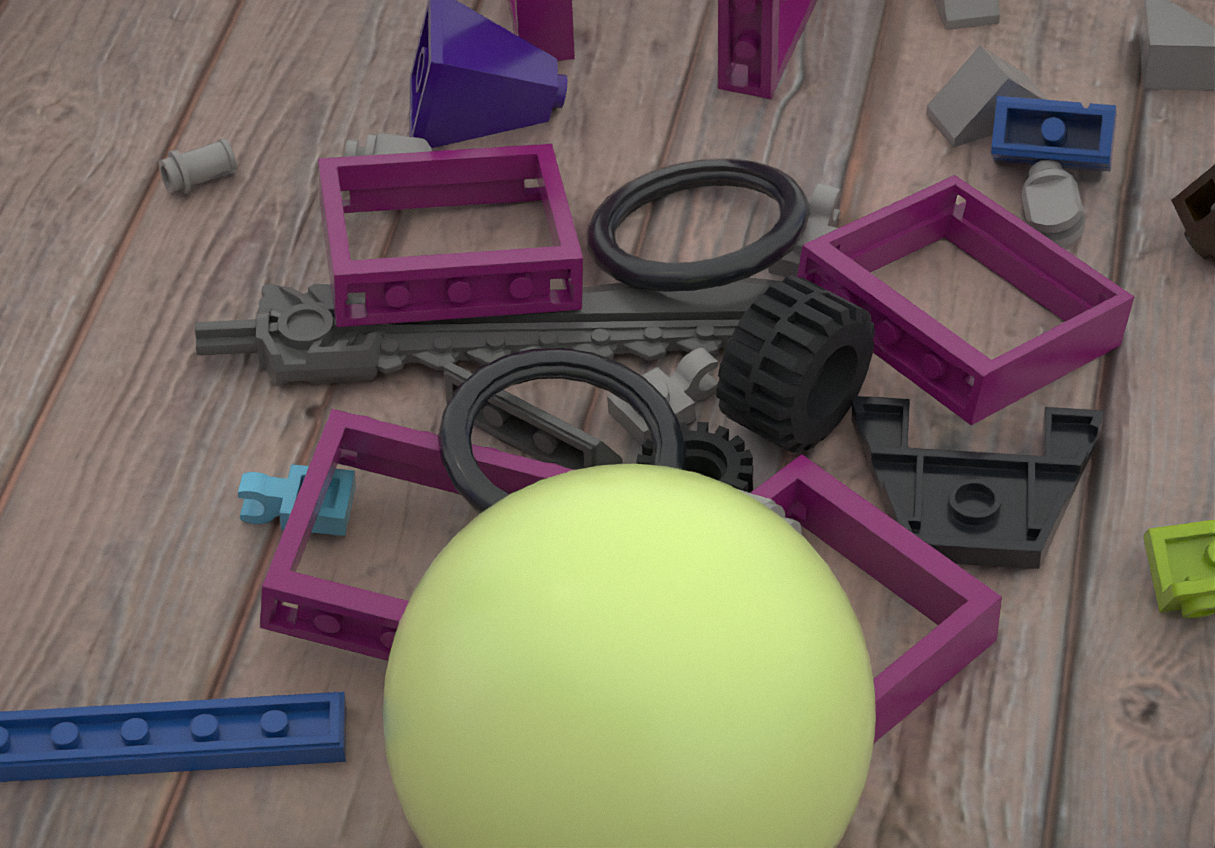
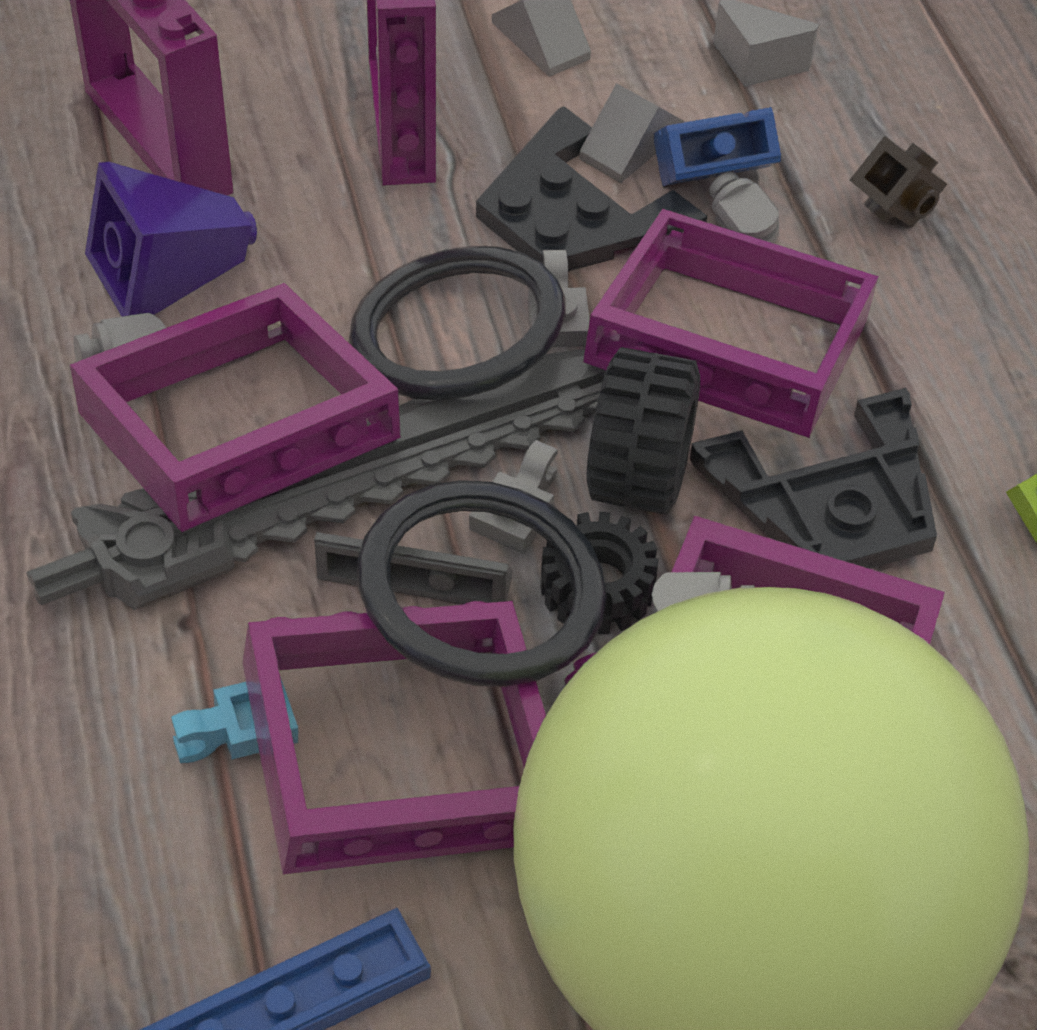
camera: 30 degrees left, 5 degrees up
(871, 150) = (550, 206): none -> black wing

